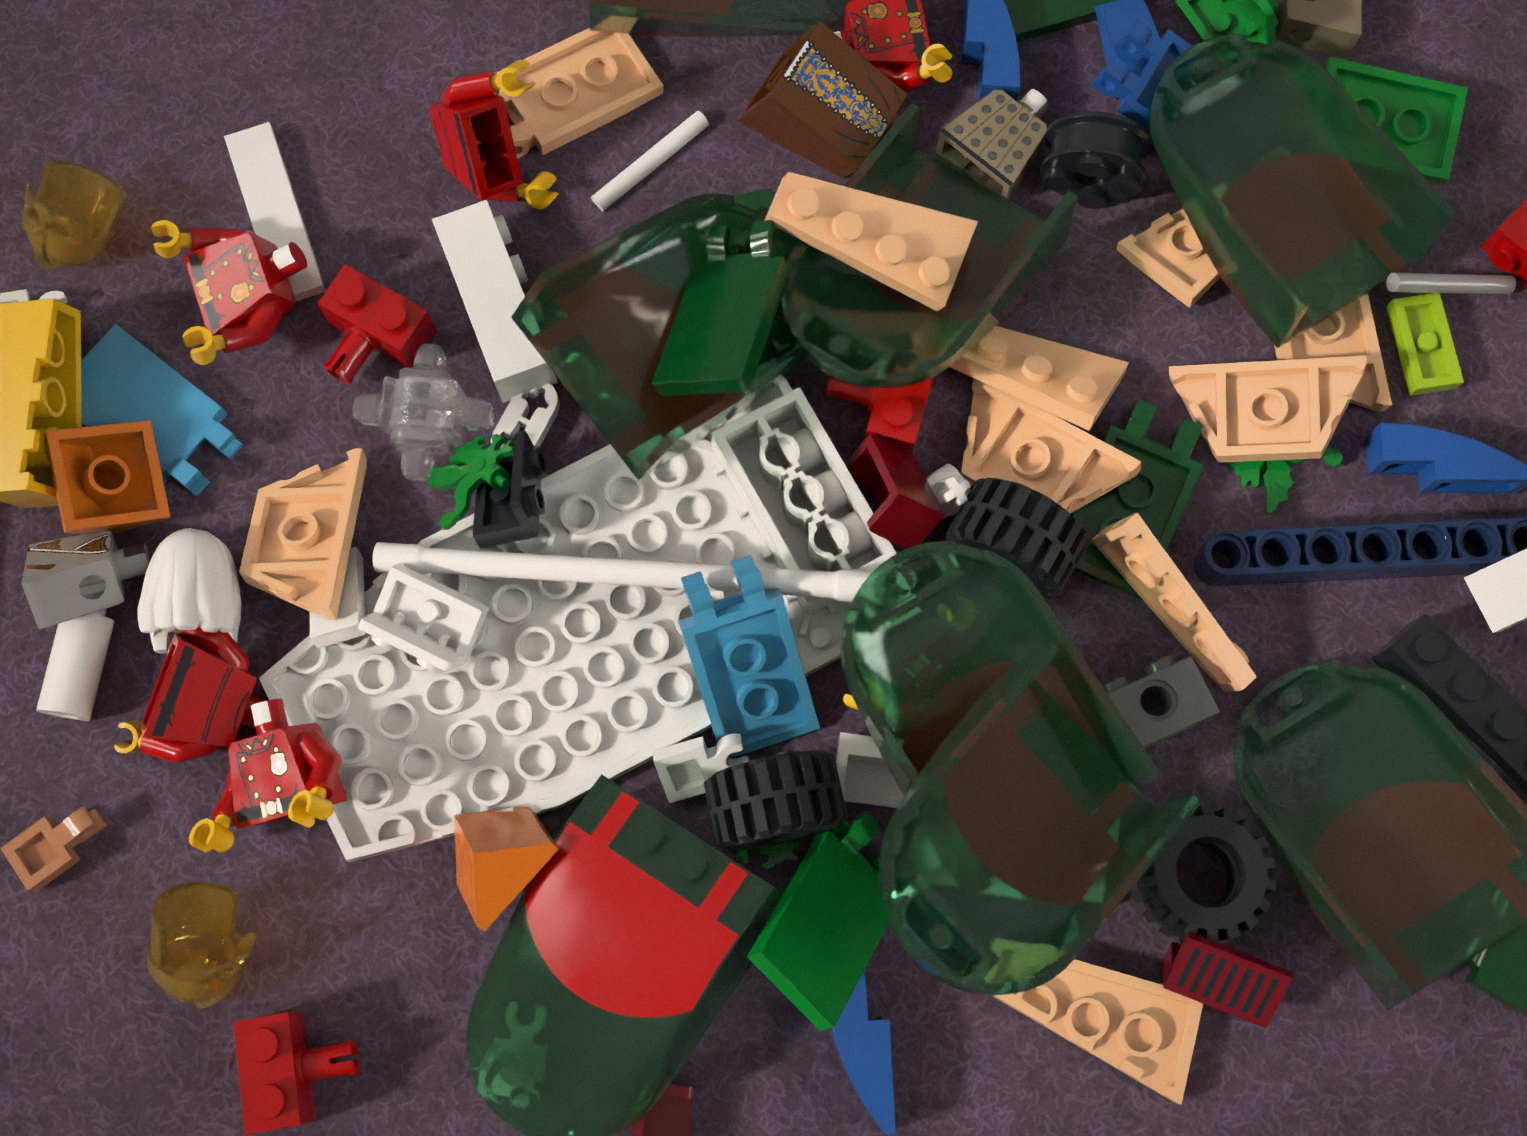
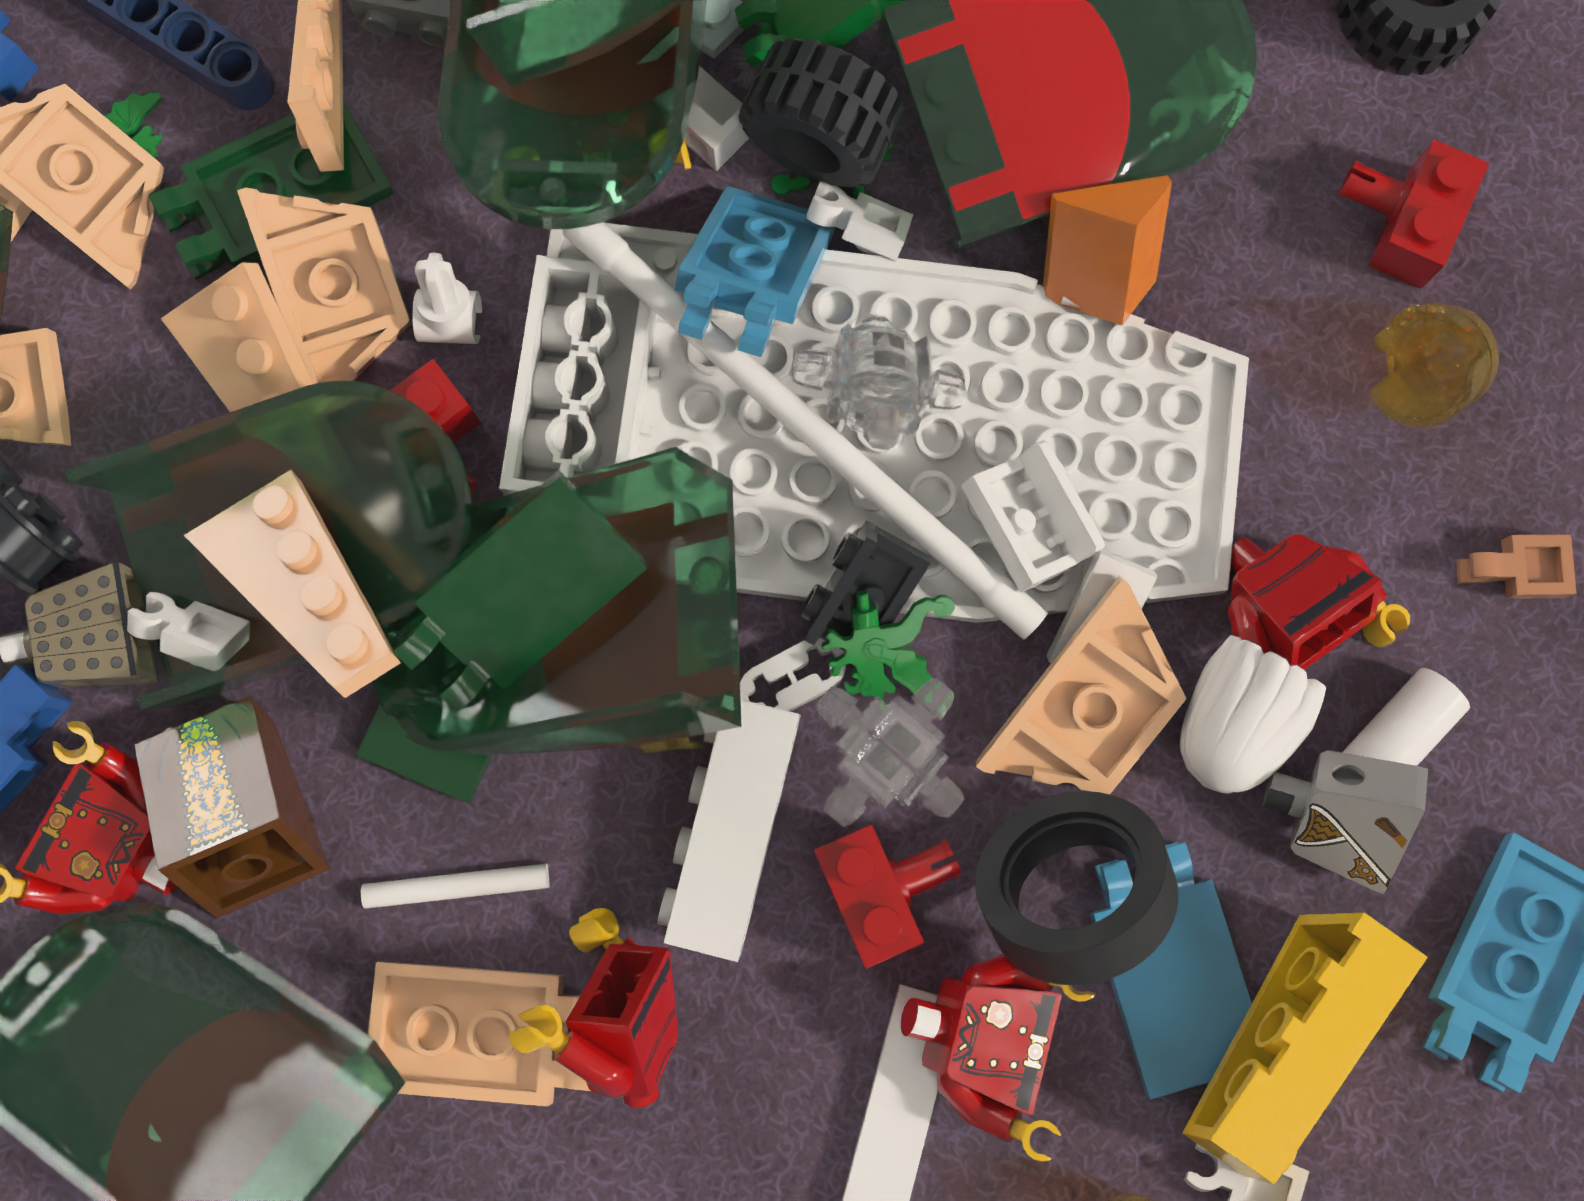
camera: 140 degrees left, 5 degrees up
(107, 477) = (1262, 905): orange slope -> none
(176, 398) = (1098, 949): none -> black tyre
(274, 778) = (1270, 464): red torso -> none
(592, 630) = (878, 380): none -> clear piece
(905, 498) = (484, 324): dark red panel -> none
(923, 176) = (192, 634): none -> white plate
(1023, 529) = (410, 196): black tyre -> none

